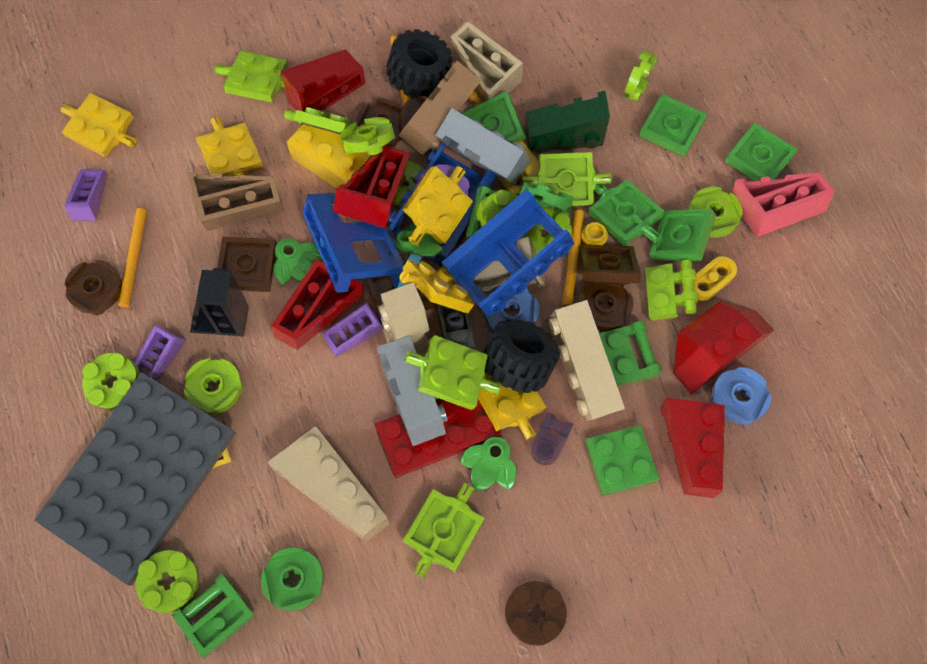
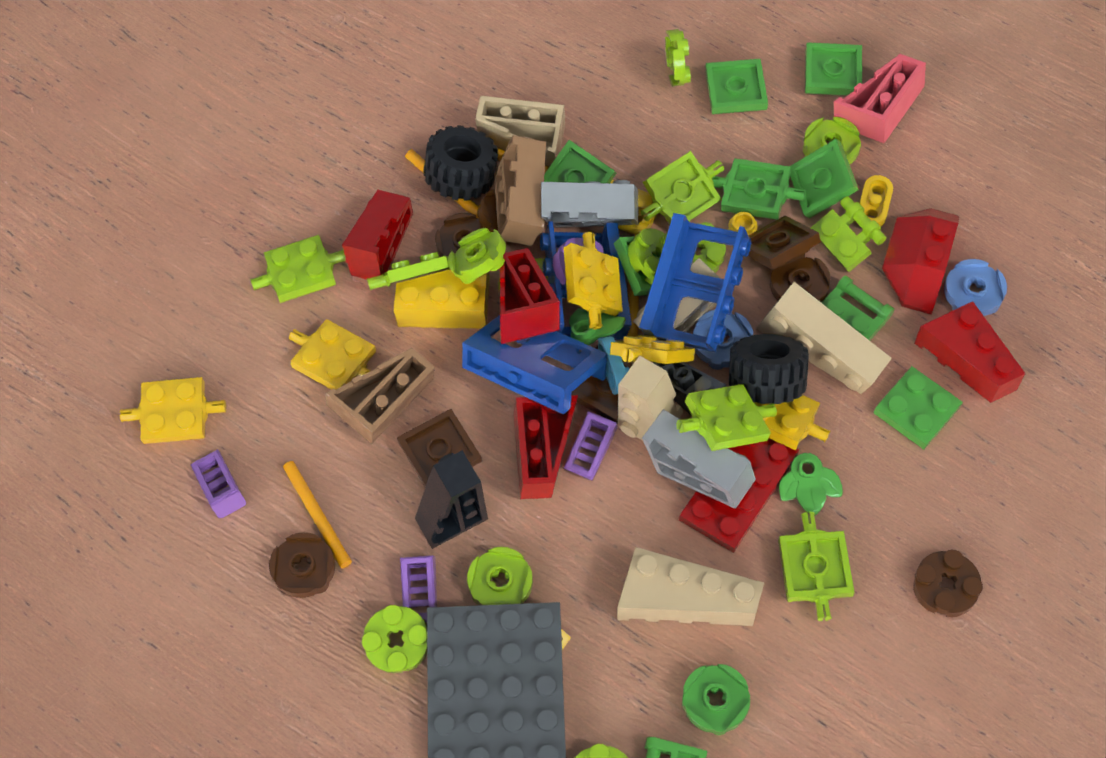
camera: 30 degrees left, 5 degrees down
(297, 263) = (490, 417): bright green plate -> none
(546, 198) = (696, 214): bright green plate -> none
(546, 447) = (845, 437): clear purple plate -> none
(568, 126) = (647, 139): dark green wedge -> none
(573, 257) = (748, 273): light orange bar -> none

